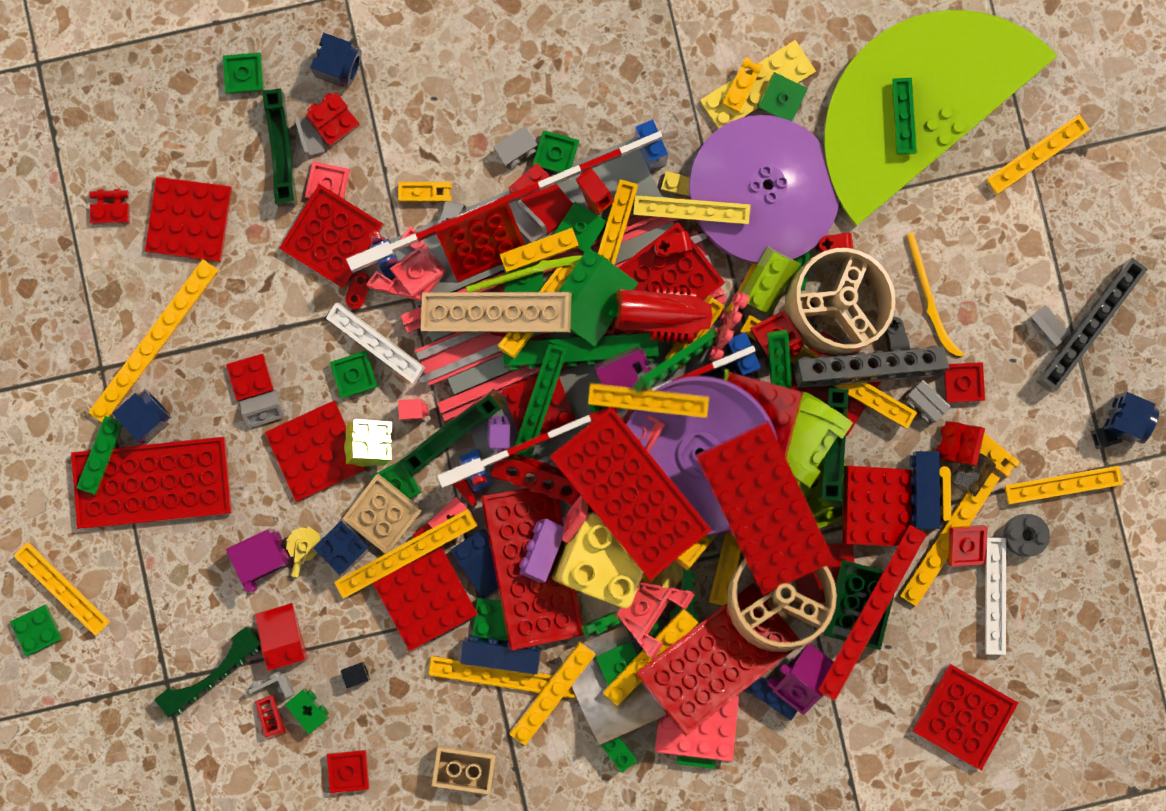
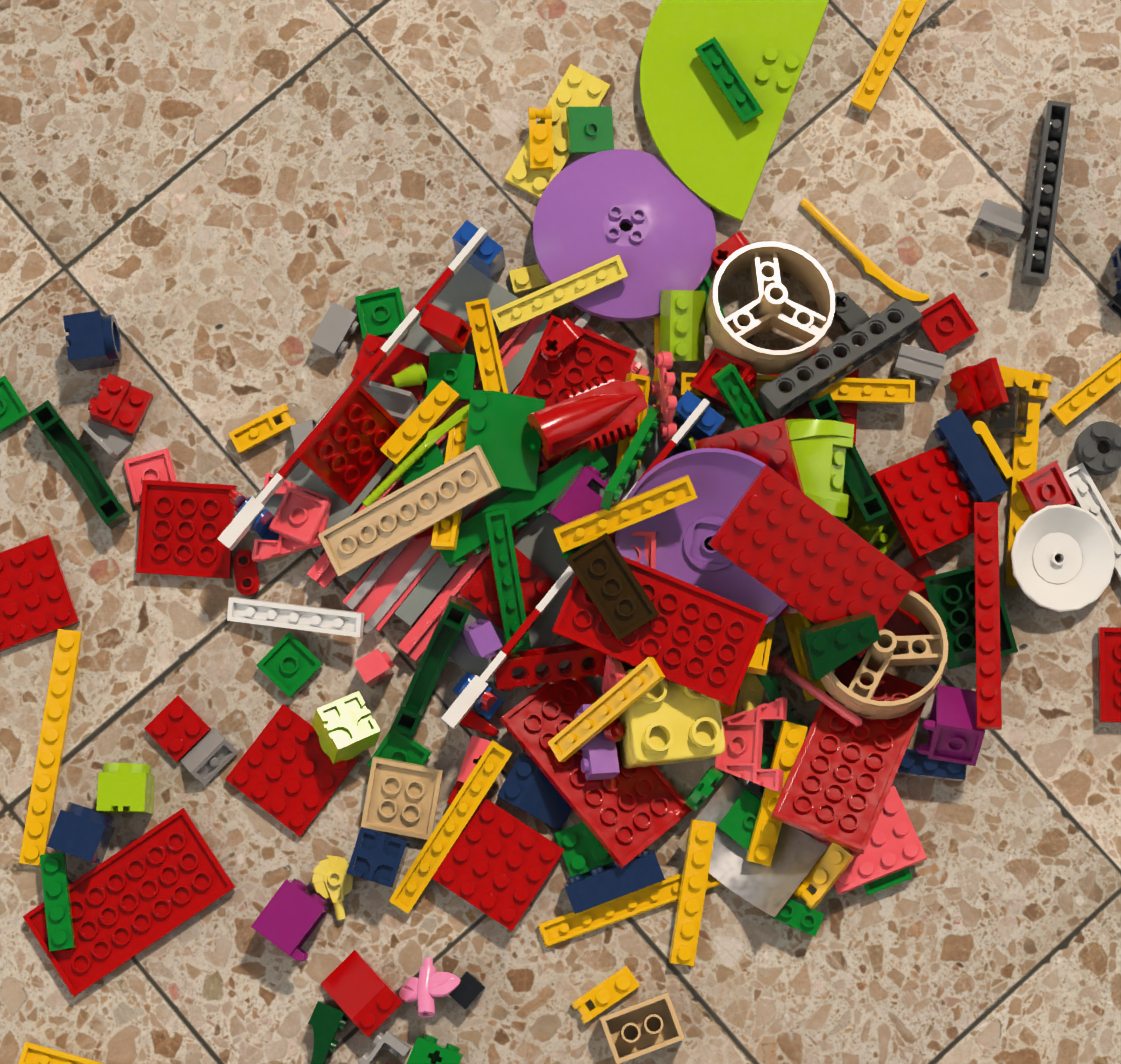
camera: 25 degrees left, 5 degrees down
(190, 401) = (125, 788): none -> lime piece
(328, 658) = (427, 987): none -> bright pink plant
(452, 731) = (606, 994): none -> yellow plate
(550, 212) = (410, 376): none -> lime cone
(558, 549) = (614, 730): none -> red plate
(559, 533) = (606, 709): none -> yellow plate
(610, 448) = (612, 587): none -> dark brown plate
(651, 733) = (824, 875): none -> yellow plate
(703, 565) = (779, 666): none -> coral piece
(750, 575) = (837, 641): none -> dark green wedge
(966, 611) = (1084, 553): none -> white dish

